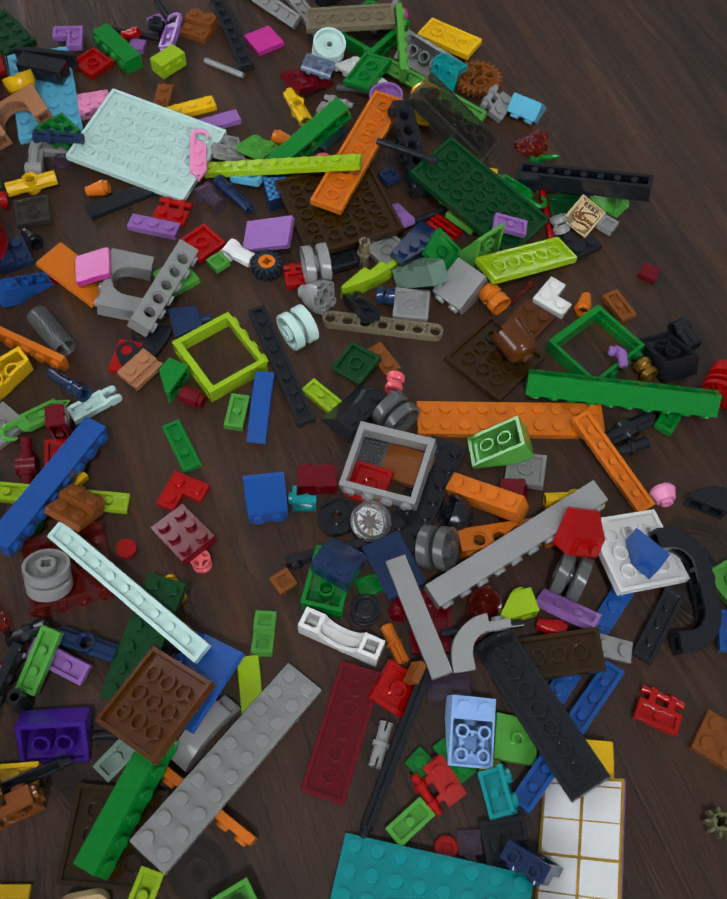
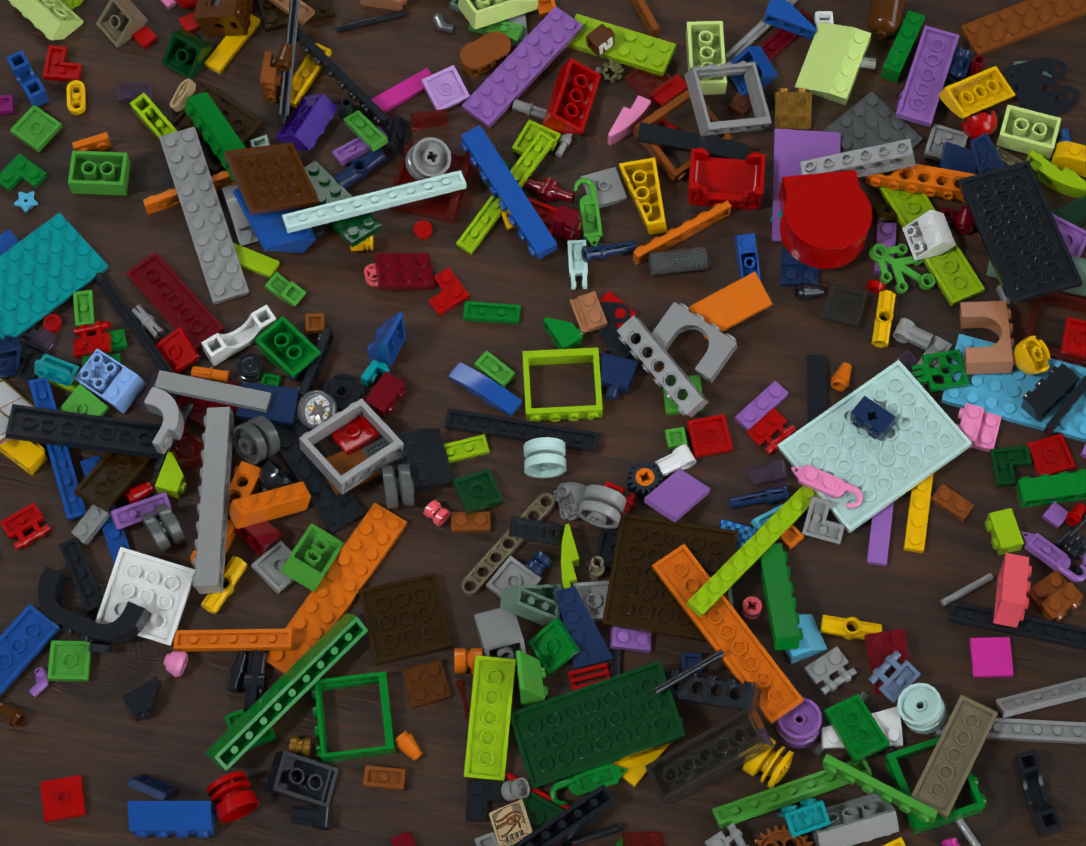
camera: 125 degrees right, 5 degrees up
(50, 137) = (927, 353): dark blue pin -> none
(76, 507) = (472, 200): dark orange plate -> none
(93, 266) = (721, 316): tile -> none
(116, 80) = (1004, 460): none -> dark green plate
(128, 144) = (864, 414): none -> dark blue brick
(192, 397) = (533, 340): dark red brick -> none
(213, 32) = (1012, 590): none -> coral brick
(256, 147) = (809, 553): bright green plate -> none
(279, 137) = (811, 587): orange cone -> none
(338, 563) = (290, 354): dark blue slope -> none
(415, 672) = (174, 364): dark orange tile -> none
(513, 225) = (540, 728): medium lavender plate -> none
(516, 341) = (398, 631): reddish brown cylinder -> none
(549, 298) = (437, 719): white plate -> none
(580, 532) = (183, 545): red slope -> none
(619, 353) = (320, 719): medium lavender arm -> none
(645, 553) = (132, 589): blue slope -> none

